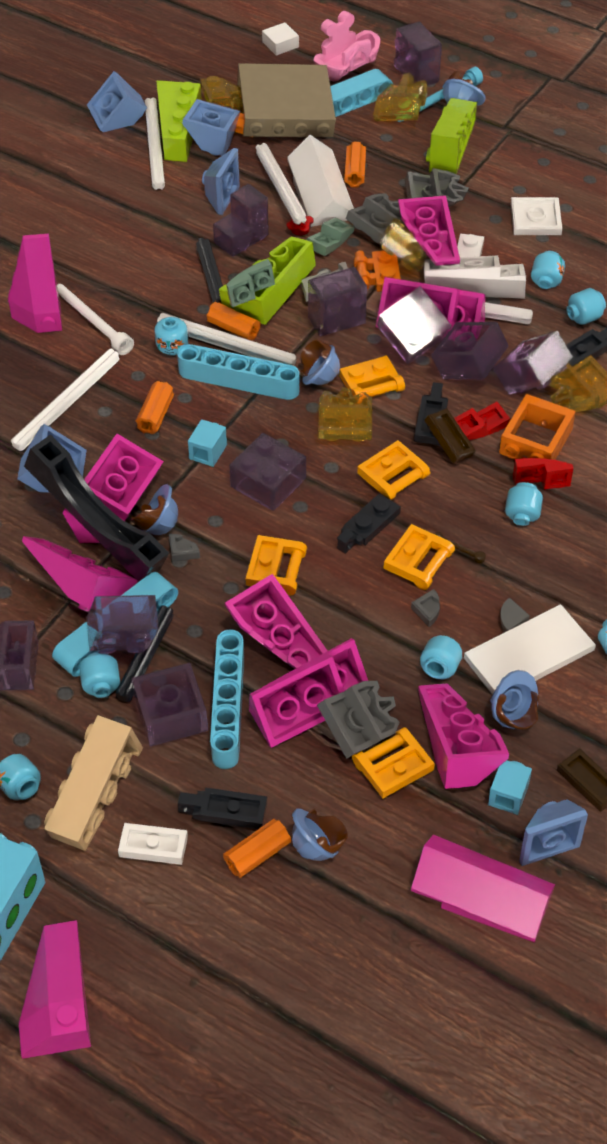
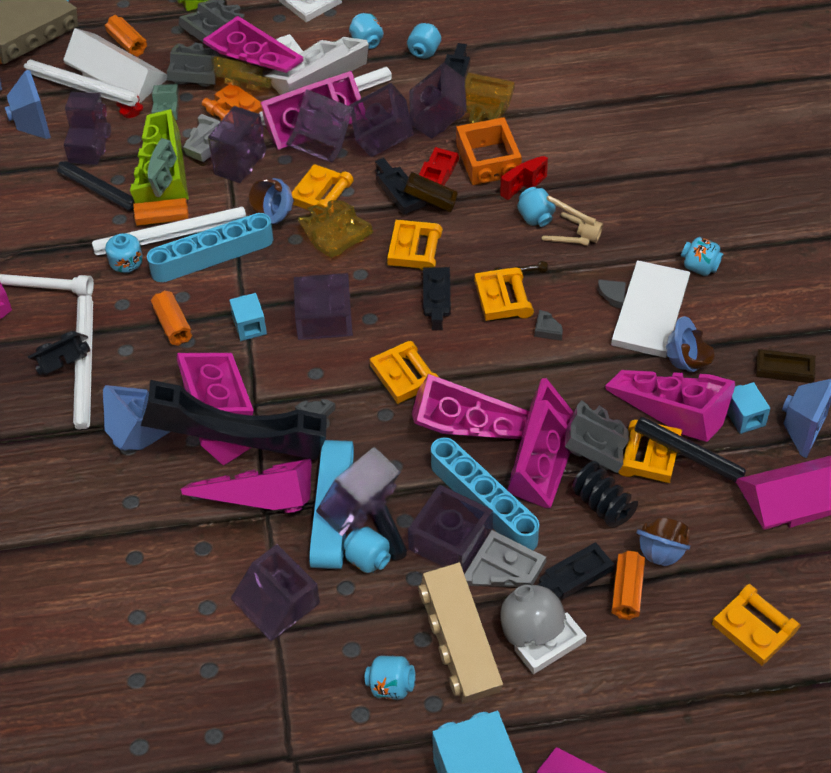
camera: 40 degrees left, 0 degrees up
(59, 381) = (50, 354): none -> black hinge
(154, 810) = (532, 615): none -> light grey cylinder
(160, 513) = (270, 392): medium blue piece -> none
(185, 760) = (504, 563): none -> light grey wing
(311, 957) = (749, 631): none -> light orange plate
(314, 766) = (603, 495): none -> black piece
(418, 782) = (689, 449): none -> black axle
(441, 657) = (601, 353): medium azure head -> none
(547, 549) = (588, 227): none -> tan plant

